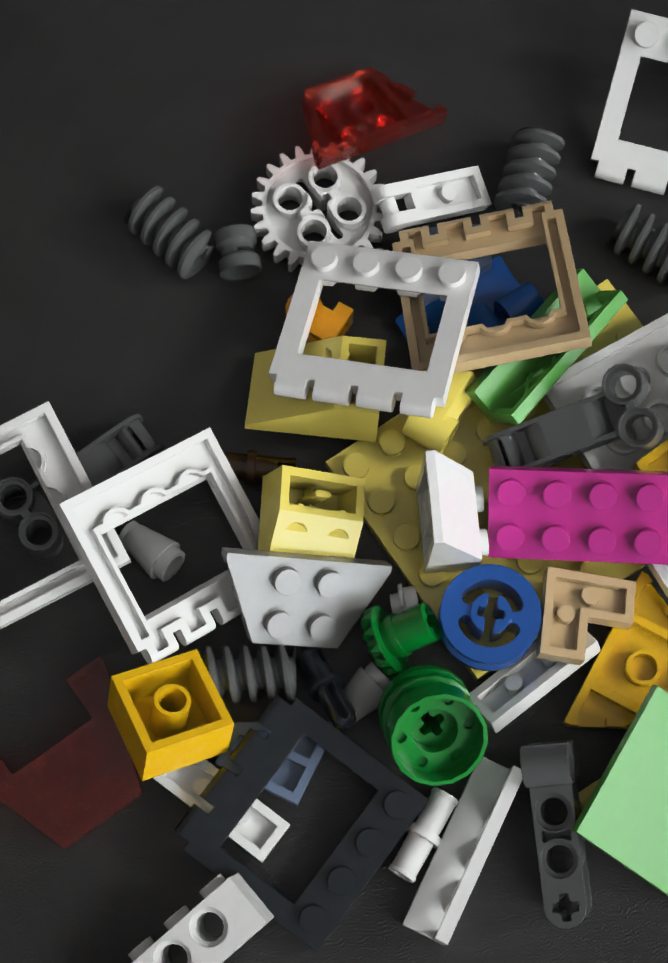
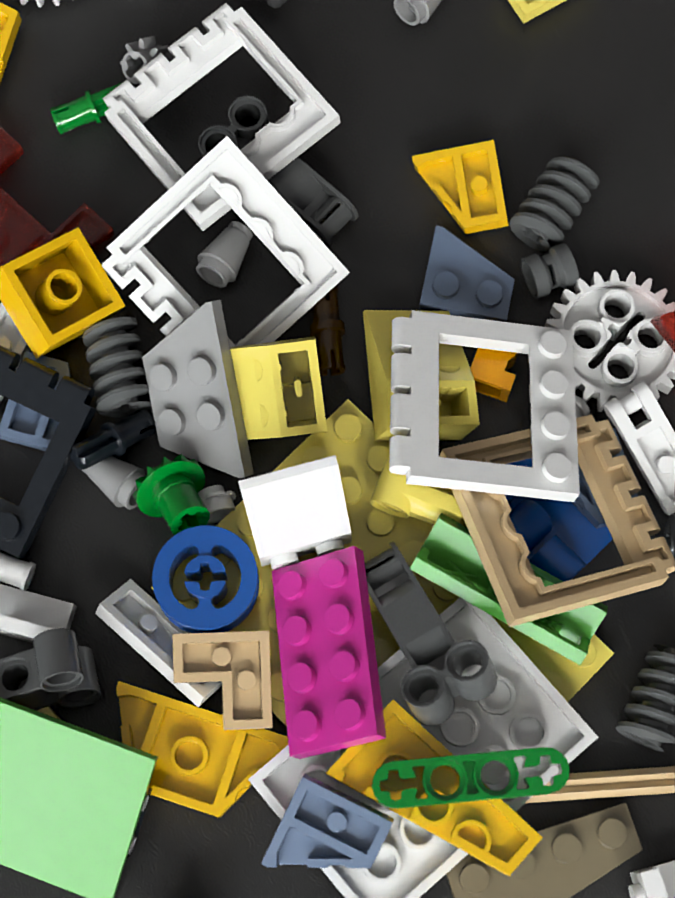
camera: 85 degrees right, 0 degrees up
(130, 308) = (466, 184): none -> yellow wing
(227, 333) = (464, 281): none -> sand blue wing
(436, 747) = (84, 541): green wheel -> none

